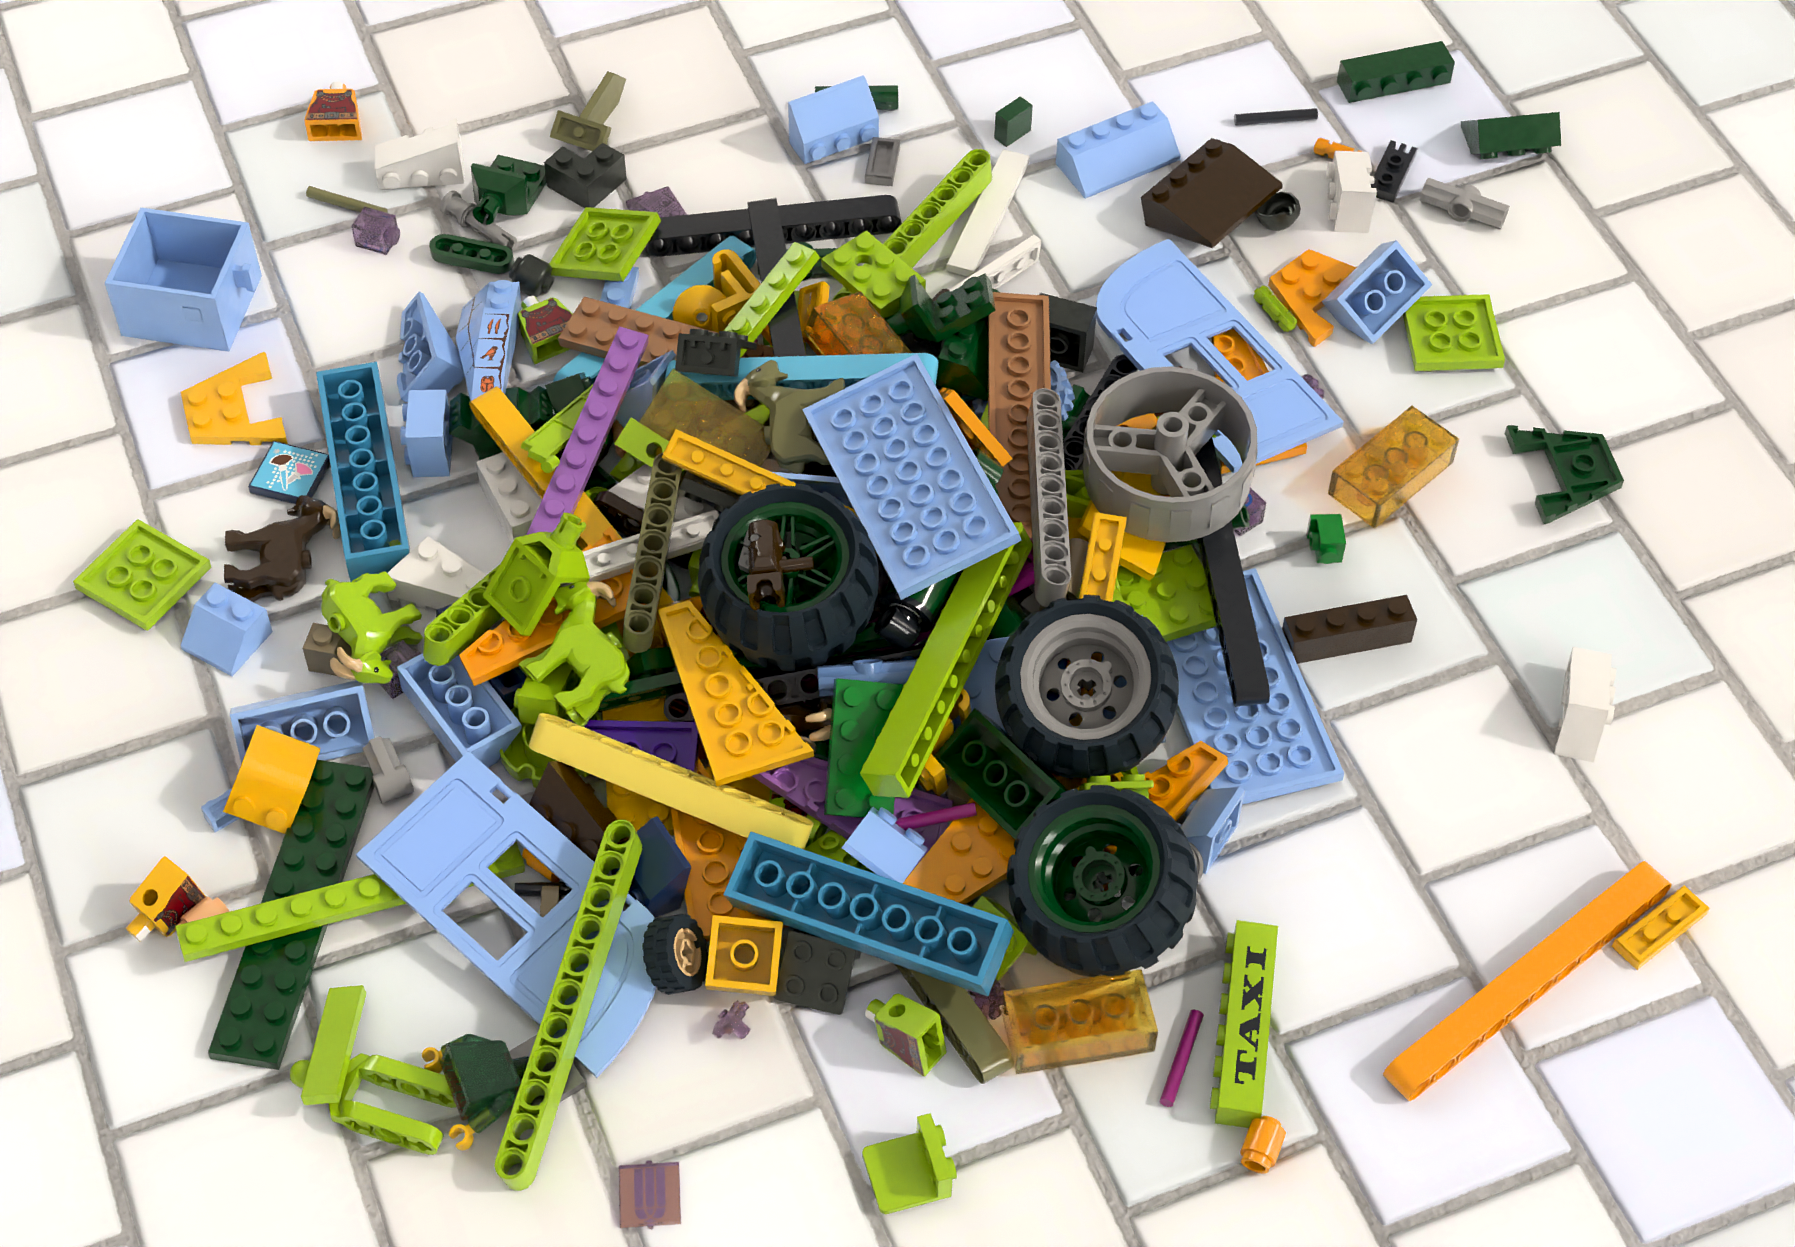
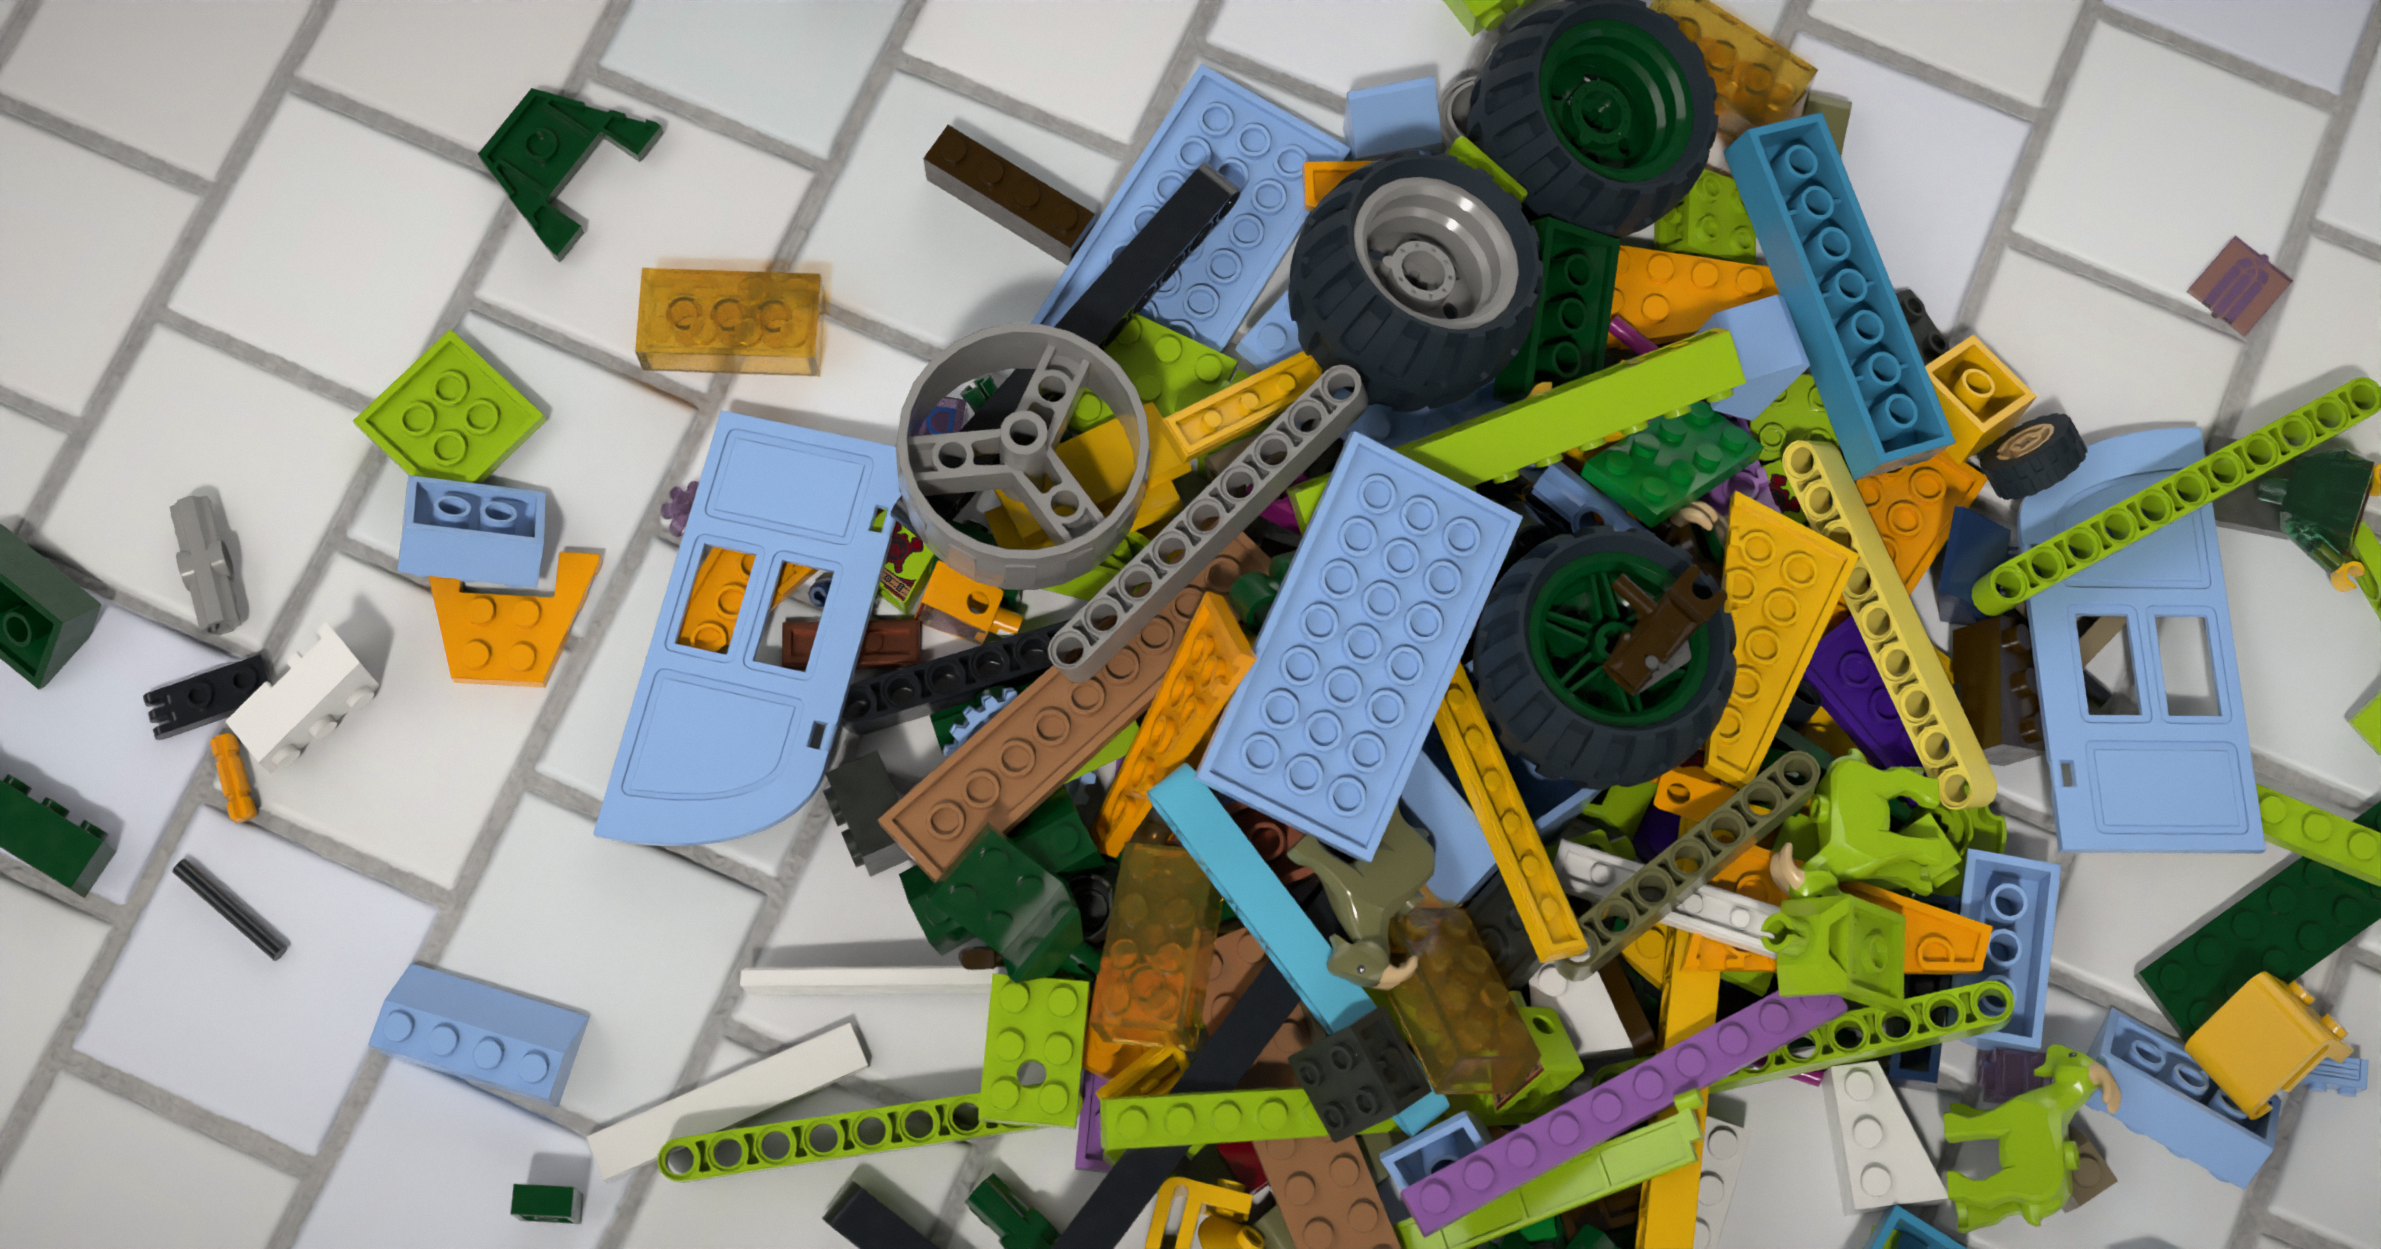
camera: 135 degrees left, 20 degrees up
(389, 776) = (2133, 945): light grey piece -> none
(731, 1021) = (2029, 362): clear purple plant -> none
(909, 1031) = (1884, 195): lime torso -> none
(910, 1168) = (1994, 91): lime bracket -> none
(1209, 194) = (471, 844): dark brown slope -> none
(1275, 308) = (586, 640): lime axle -> none
(1279, 211) = (420, 756): pearl dark grey hair -> none
(1326, 537) = (900, 311): green brick -> none

